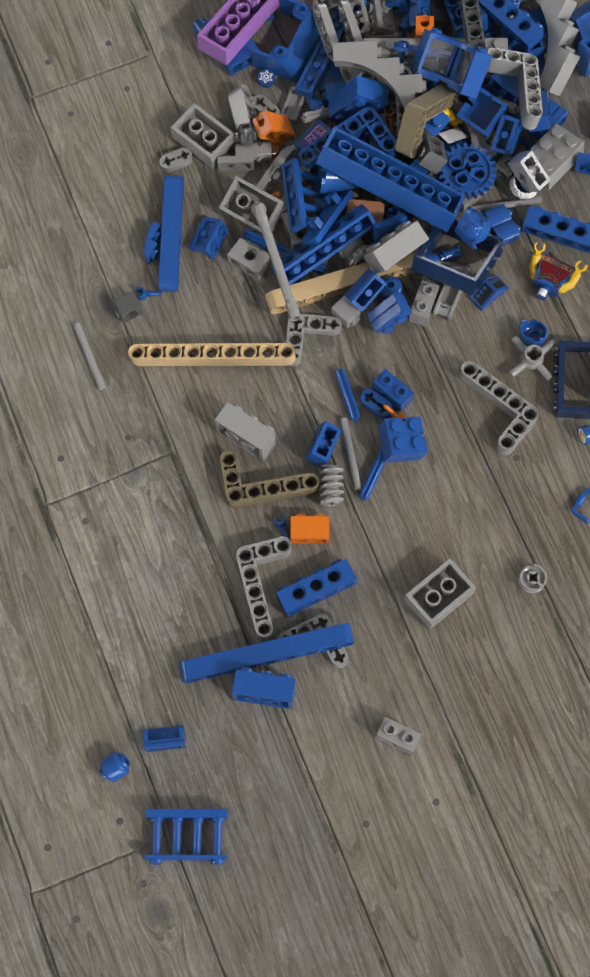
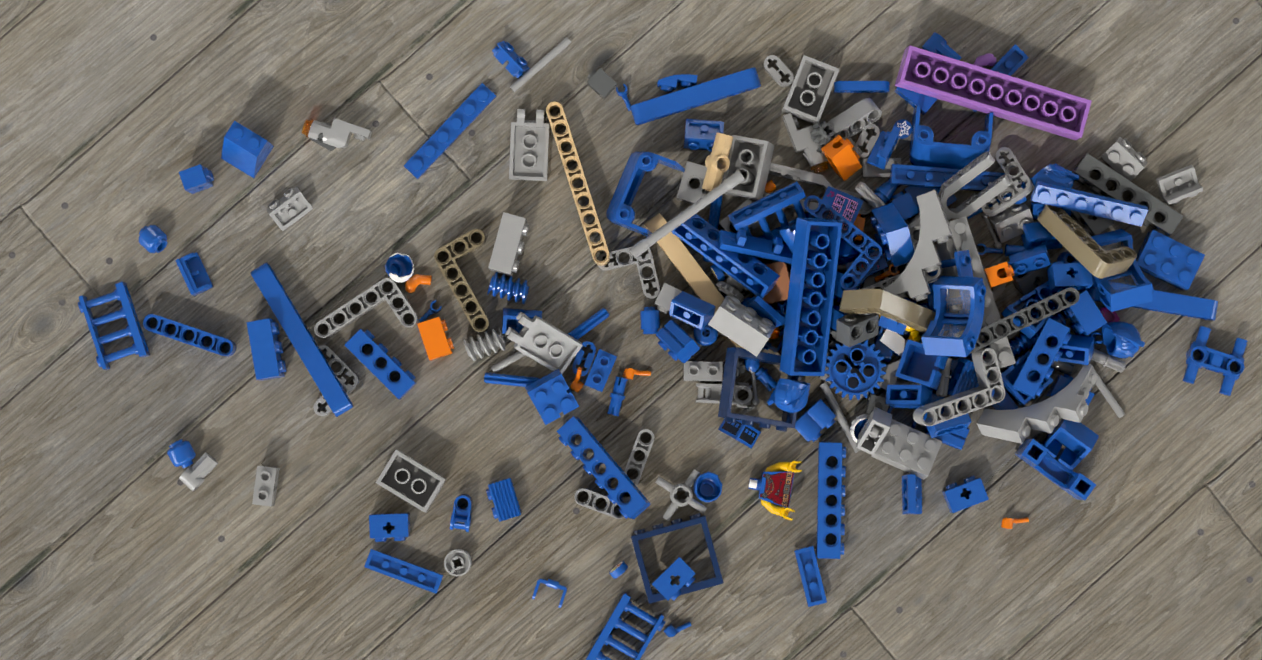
camera: 65 degrees right, 15 degrees up
(62, 644) = (245, 149): none -> blue slope
(72, 700) = (196, 178): none -> blue brick
(80, 375) = (505, 52): none -> blue hinge
(81, 557) = (334, 136): none -> light grey plate
(119, 455) = (450, 131): none -> blue plate
(134, 625) = (289, 208): none -> light grey bracket
(161, 389) = (529, 148): none -> light grey tile
(217, 94) = (861, 86): none -> blue beam
(221, 772) = (180, 335): none -> blue beam
(230, 539) = (399, 267): none -> blue hair
(238, 226) = (719, 153): none -> tan piece
(248, 531) = (415, 280): none -> orange arm
(250, 325) = (620, 207): none -> blue windscreen
(278, 92) = (884, 147): none -> blue bracket
(285, 446) = (509, 287): none -> blue piece
(338, 263) = (718, 273): none -> blue tile
(338, 809) = (181, 453): none -> blue head
(349, 428) = (544, 343): none -> light grey tile
(361, 334) = (650, 320): none -> blue brick
(364, 803) = (195, 475): none -> light grey piece
(403, 367) = (629, 373): none -> orange hand
(421, 385) = (617, 396): none -> blue pin
(472, 641) = (378, 522): none -> blue brick
(475, 410) = (637, 502): none -> blue brick
(486, 516) = (504, 500): none -> blue brick
(487, 560) = (461, 514): none -> blue piece
(524, 632) = (403, 571): none -> blue plate

